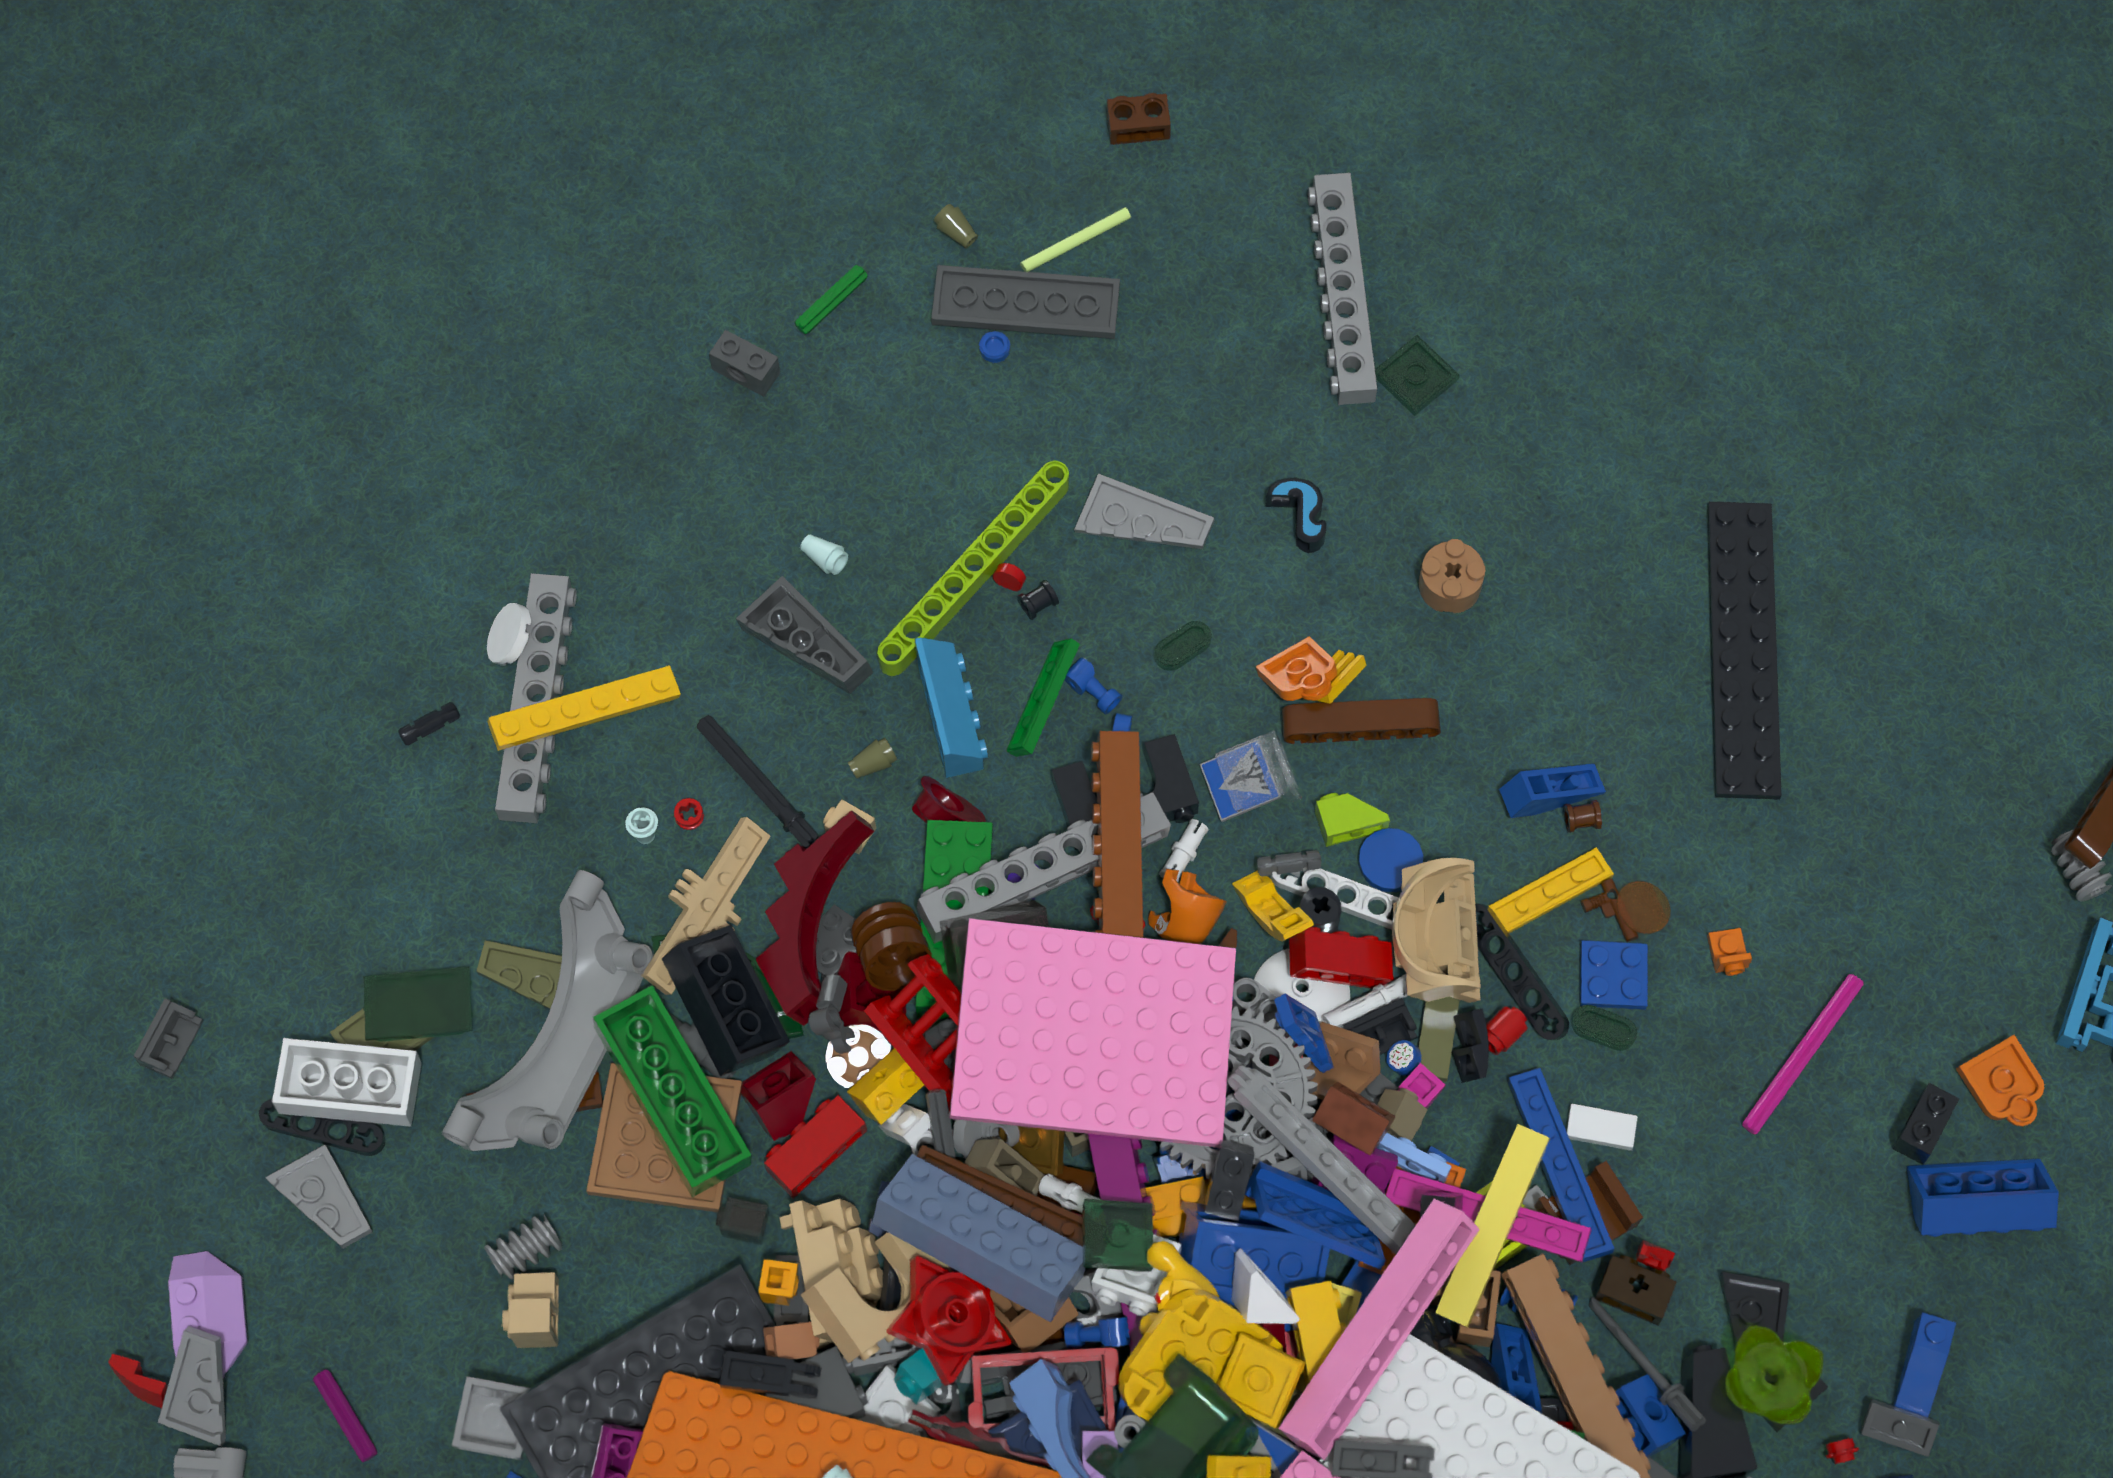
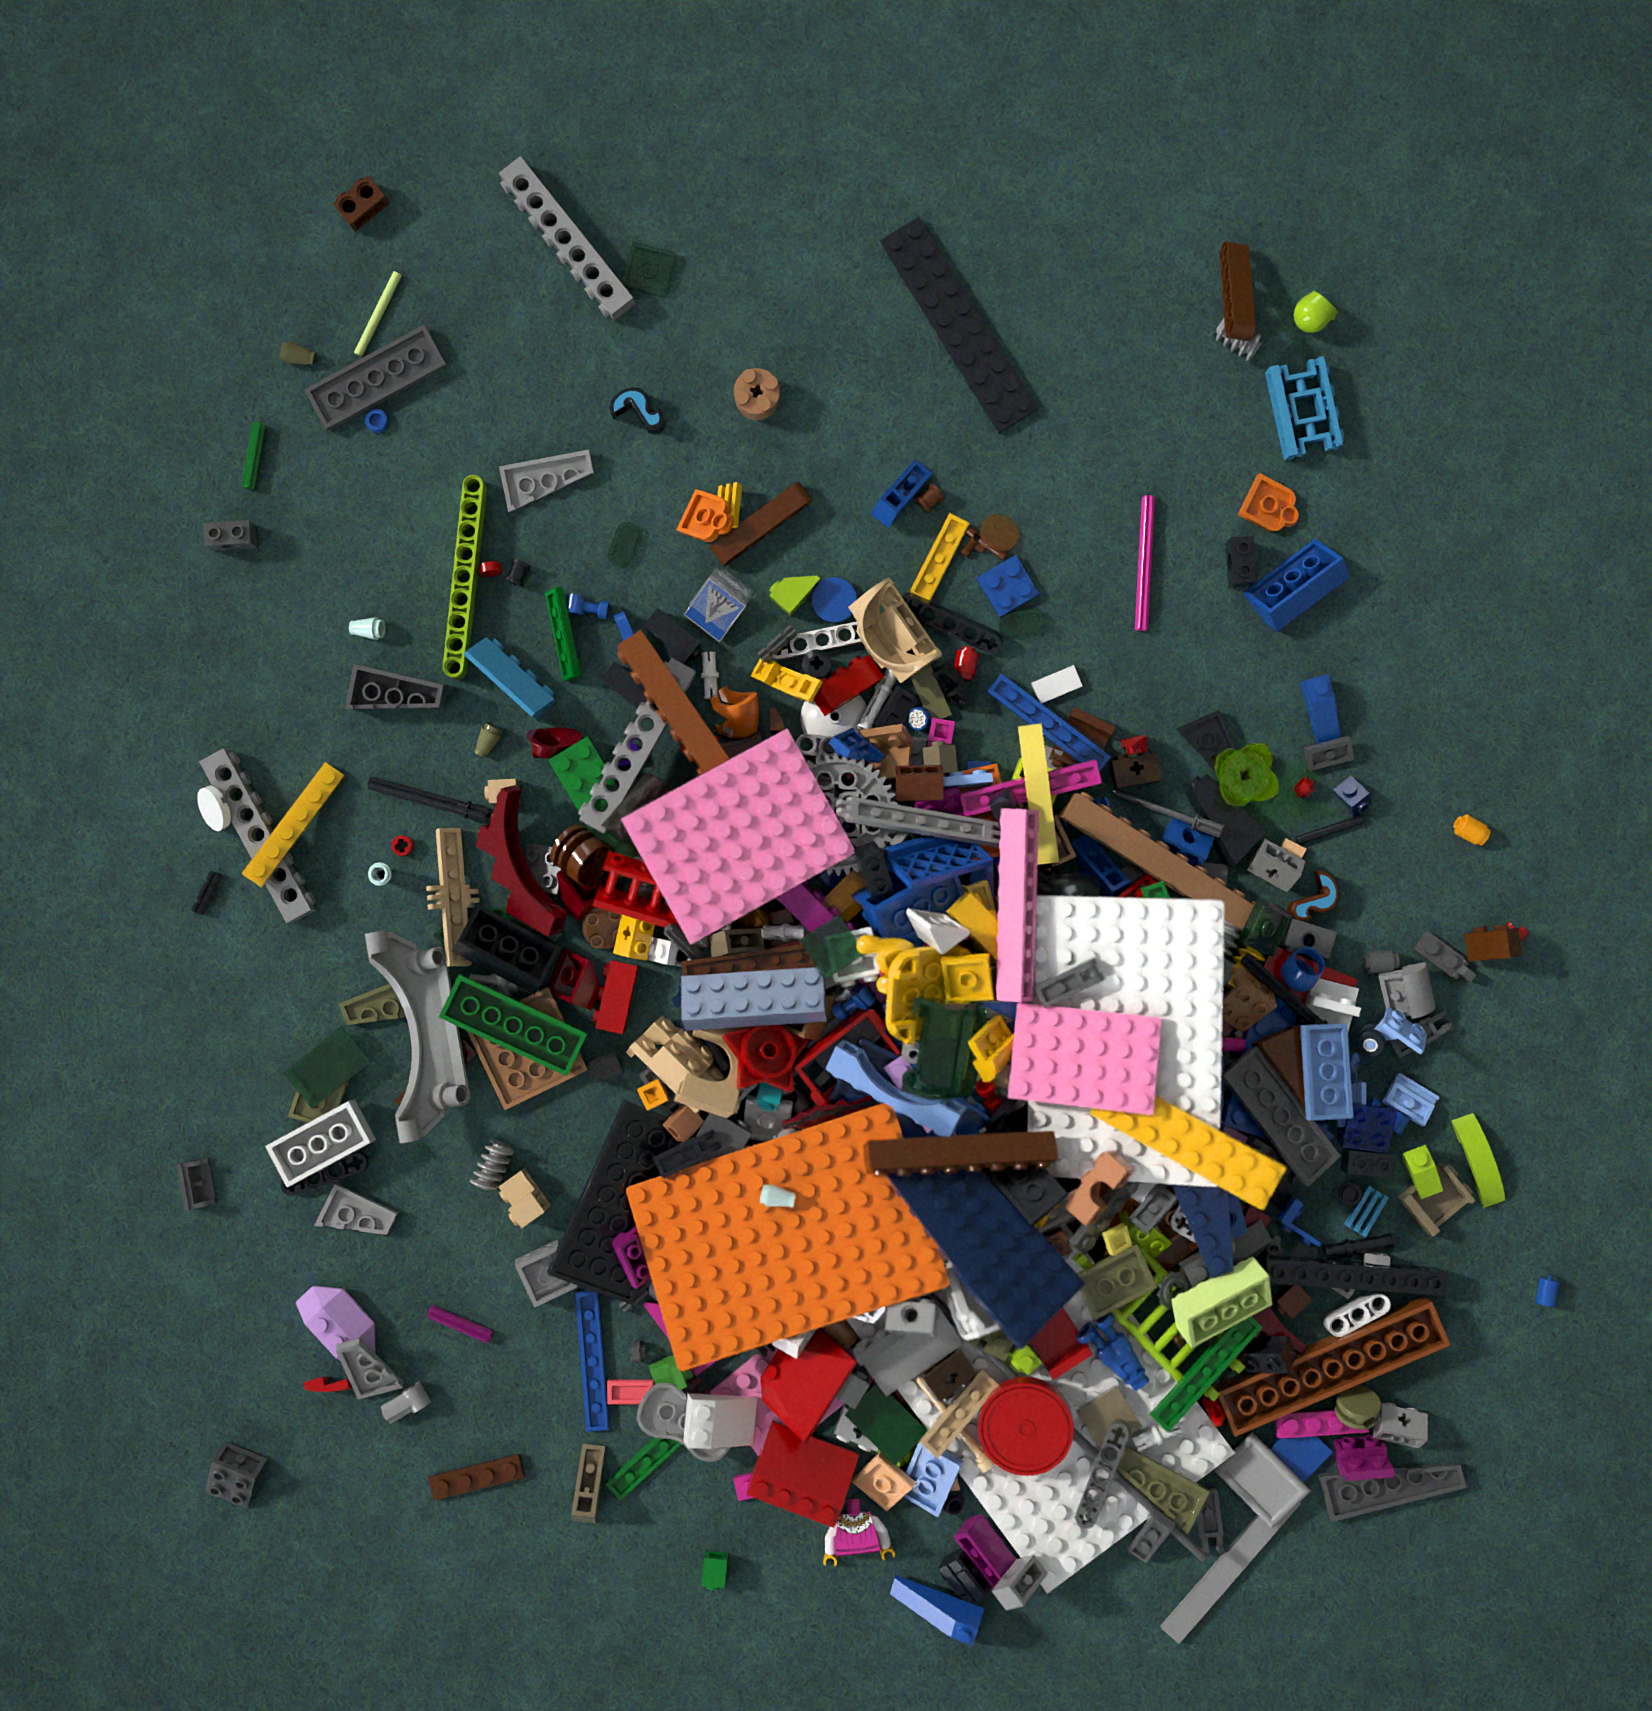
camera: 30 degrees left, 20 degrees up
(826, 1019) = (574, 924): dark grey bar -> none
(1729, 951) = (1065, 528): orange bracket -> none

